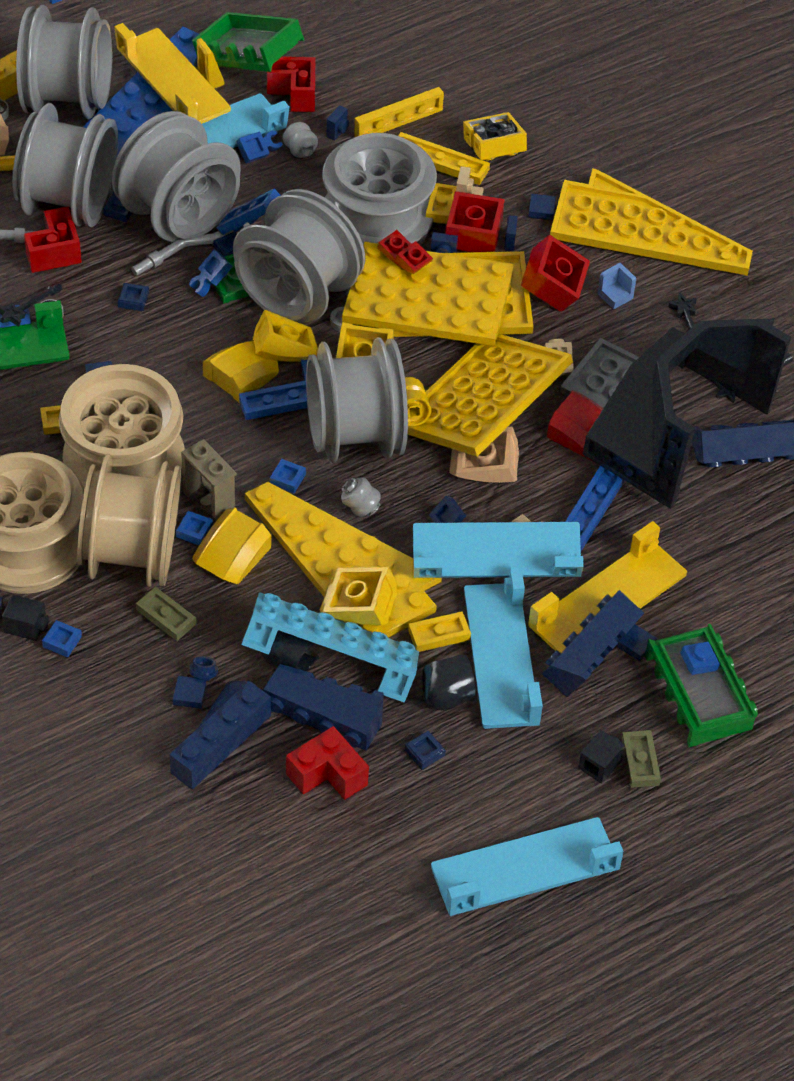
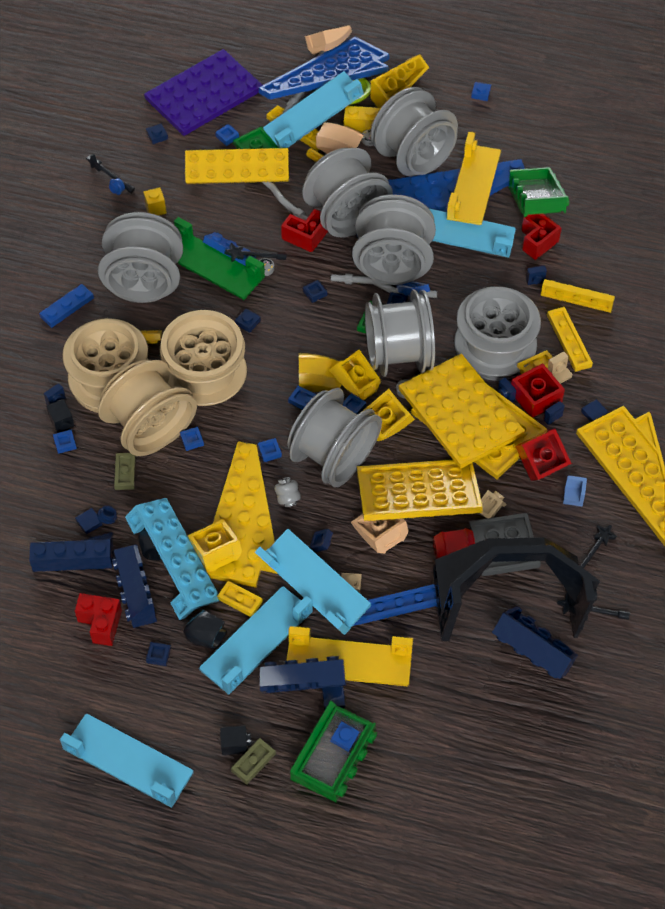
camera: 50 degrees right, 5 degrees up
(207, 65) = (503, 191): yellow slope -> none
(207, 468) = (218, 421): dark tan window -> none
(212, 271) = (359, 309): blue plate -> none
(233, 546) = (195, 465): yellow slope -> none
(256, 147) = (474, 256): blue plate -> none
(300, 139) = (503, 270): light grey piece -> none
(403, 253) = (469, 375): red slope -> none
(417, 402) = (370, 461): yellow wheel -> none
(495, 136) = (613, 349): yellow piece -> none

